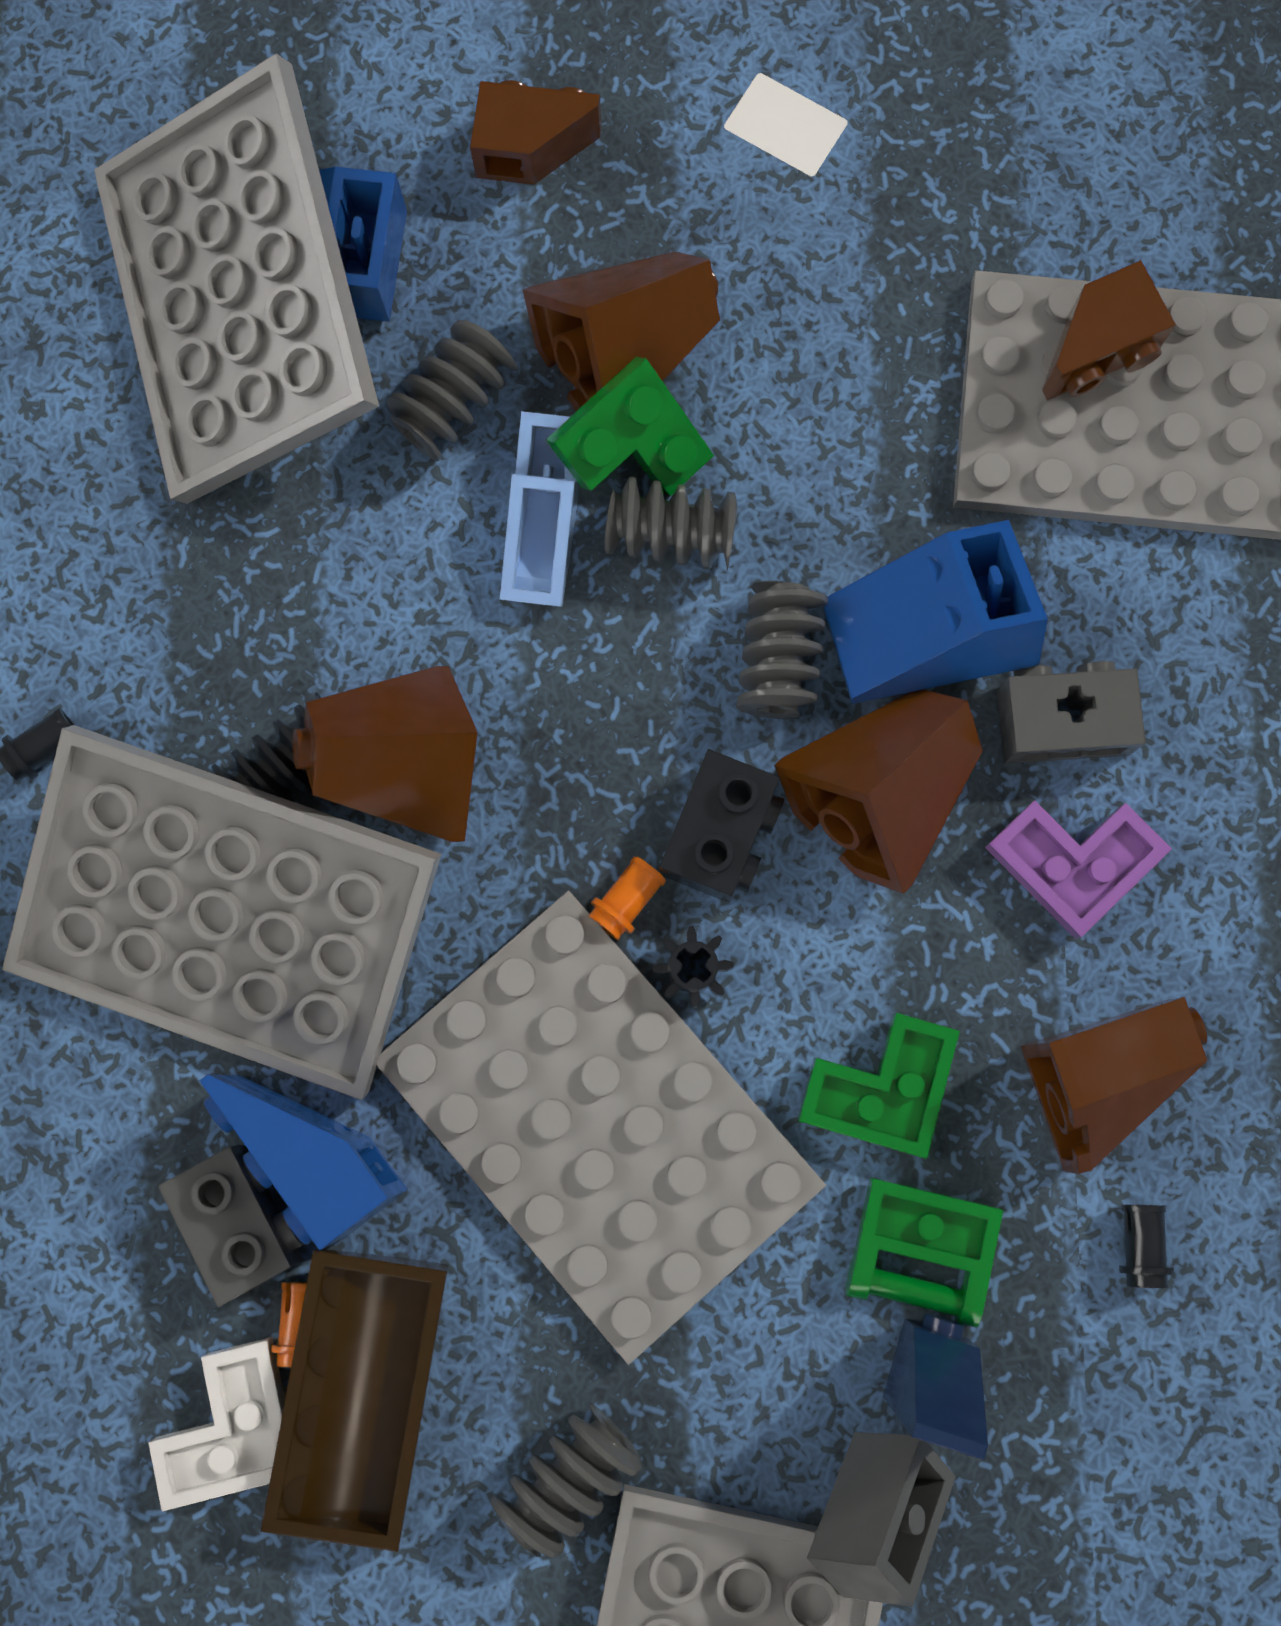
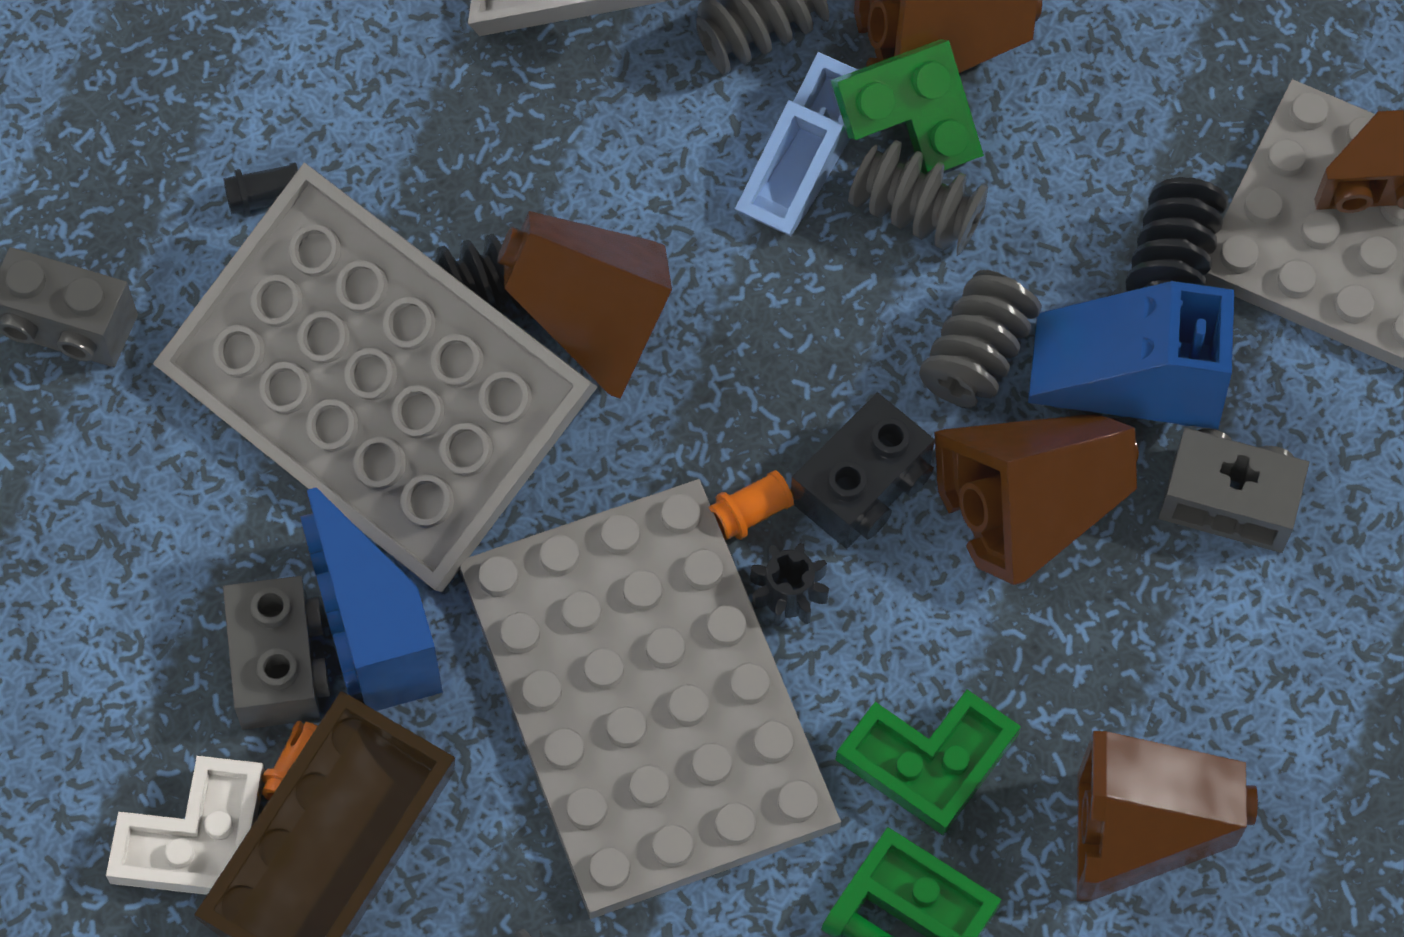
camera: 15 degrees right, 15 degrees down
(925, 479) = (1177, 233): none -> black piece
(1073, 879) = (1192, 639): medium lavender plate -> none

